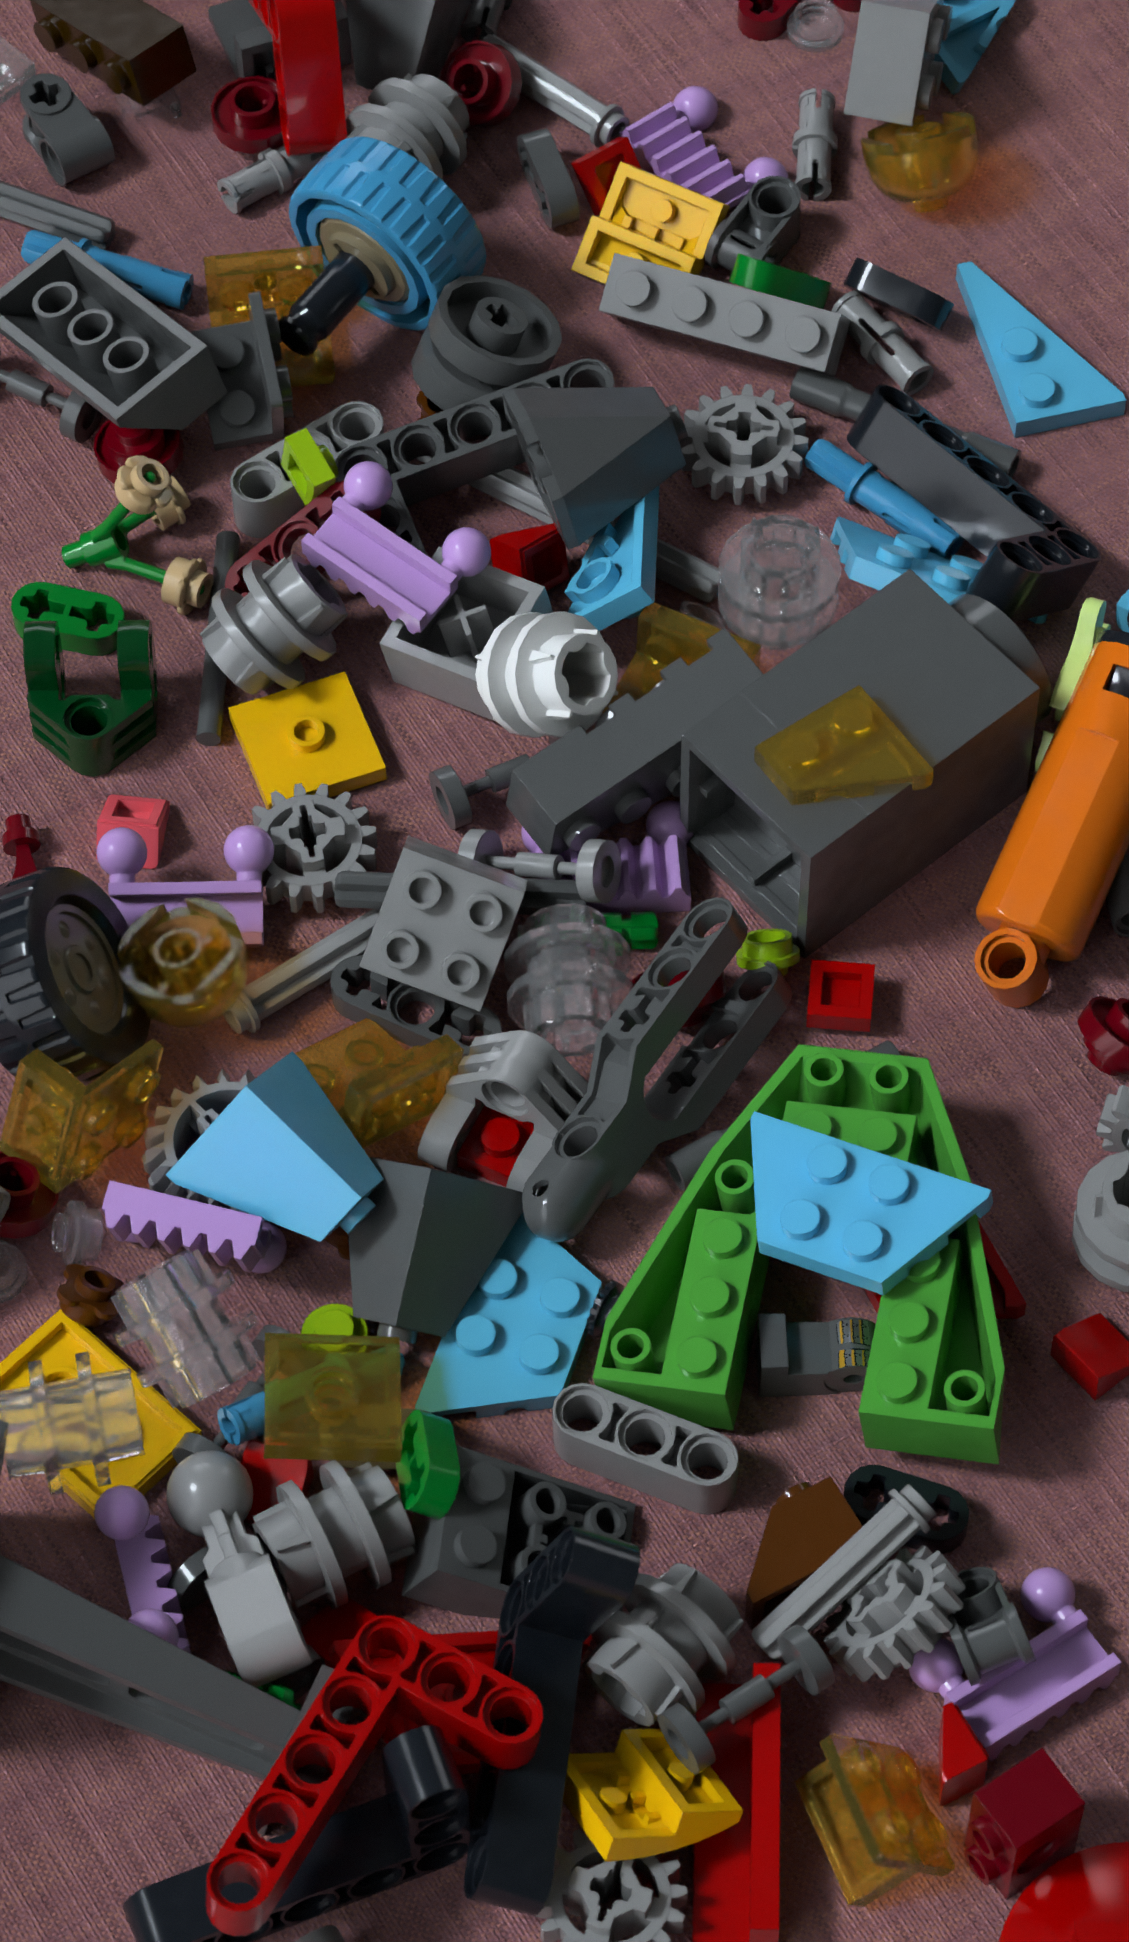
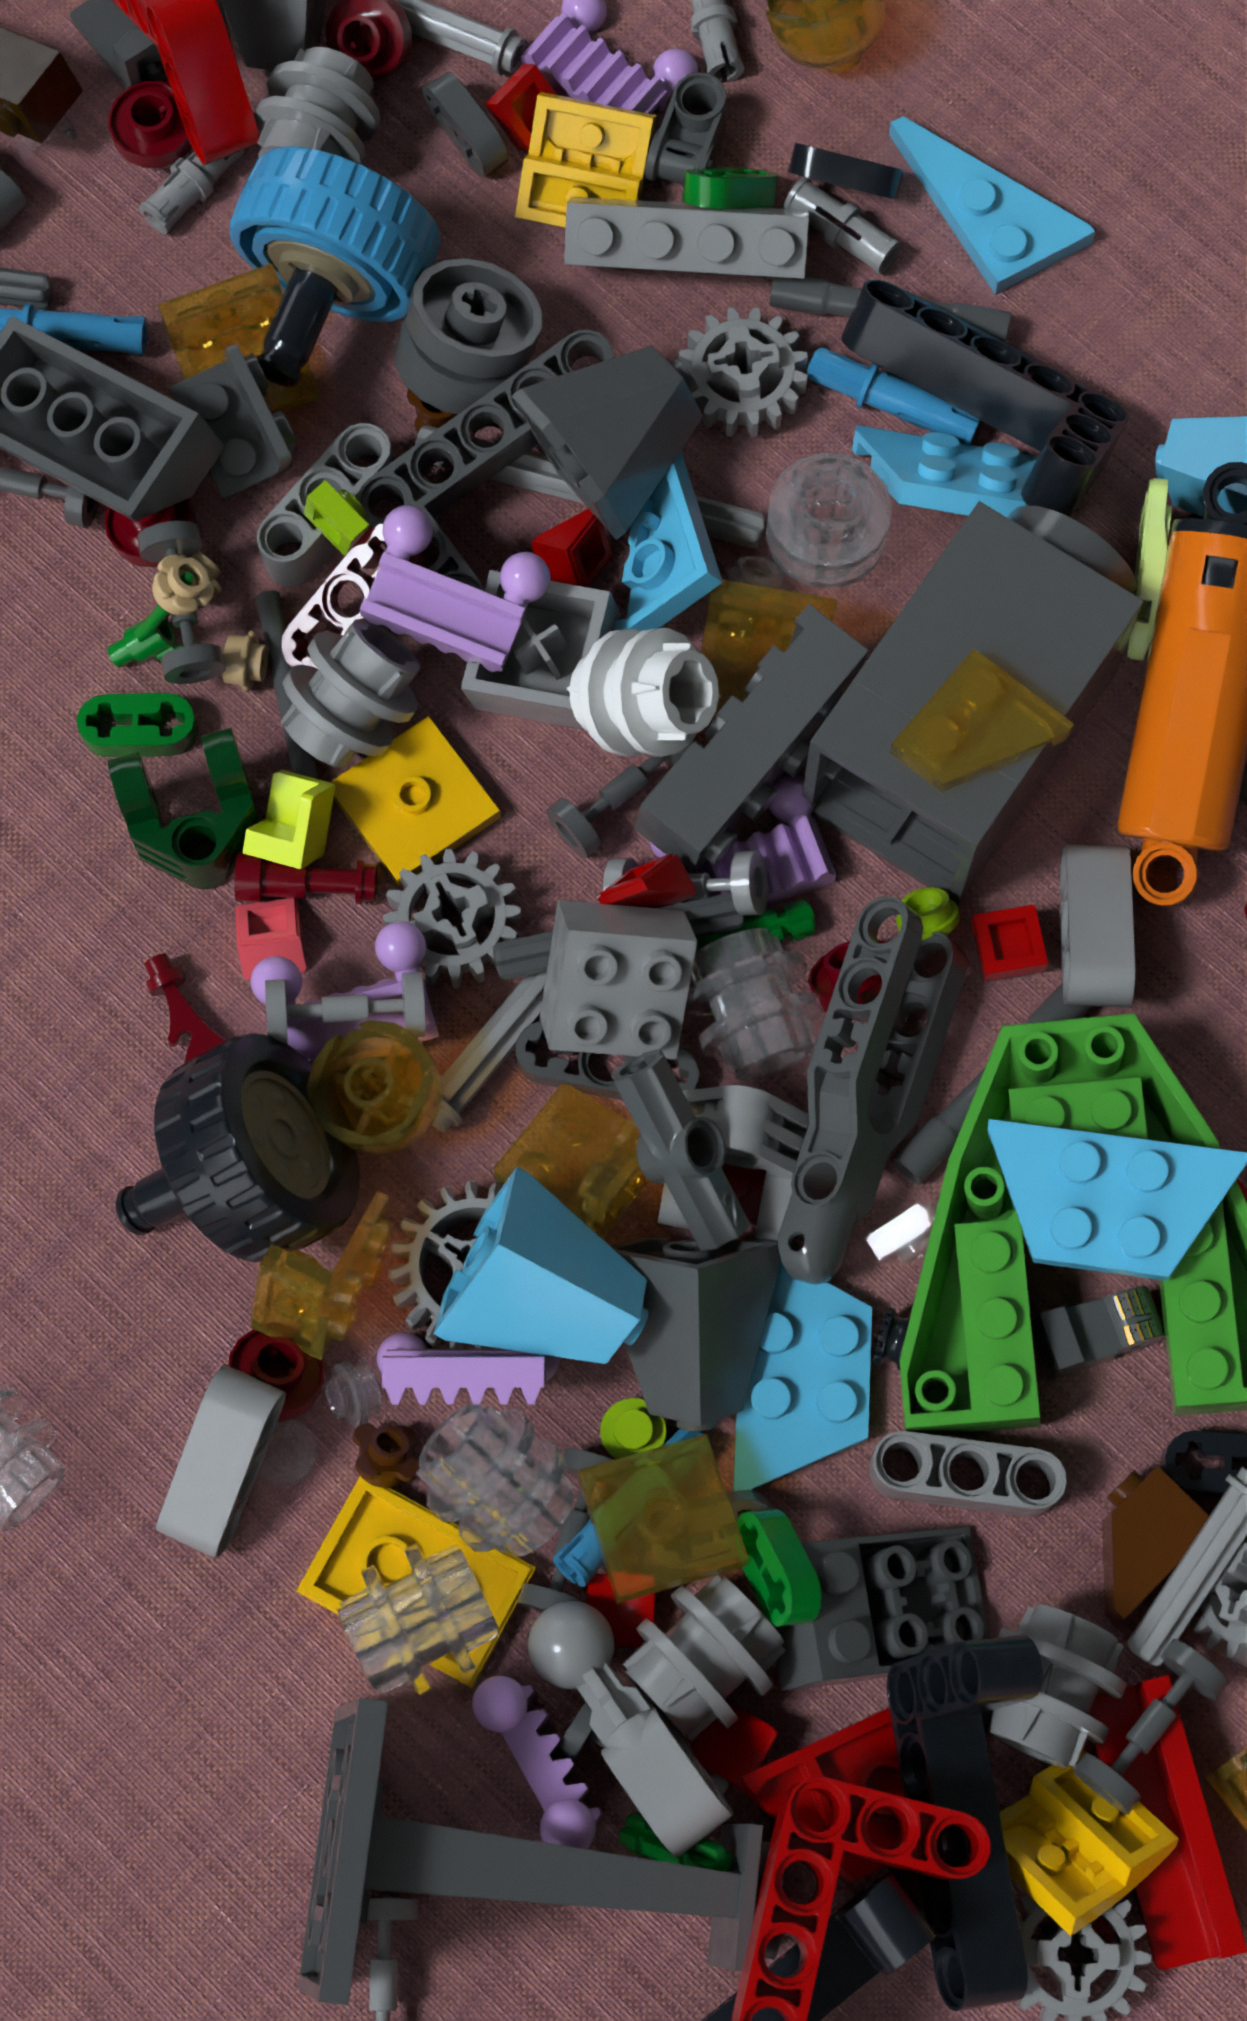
camera: 15 degrees left, 15 degrees up
(134, 564) = (193, 661): none -> dark grey wheel
(138, 772) = (266, 878): none -> dark red piece
(176, 883) = (346, 1007): none -> light grey wheel
(189, 727) = (294, 821): none -> neon yellow panel
(451, 1070) = (680, 1150): none -> dark grey piece
(506, 847) = (651, 885): none -> red slope
(645, 1215) = (905, 1235): none -> clear plate
(927, 992) = (1097, 926): none -> light grey beam

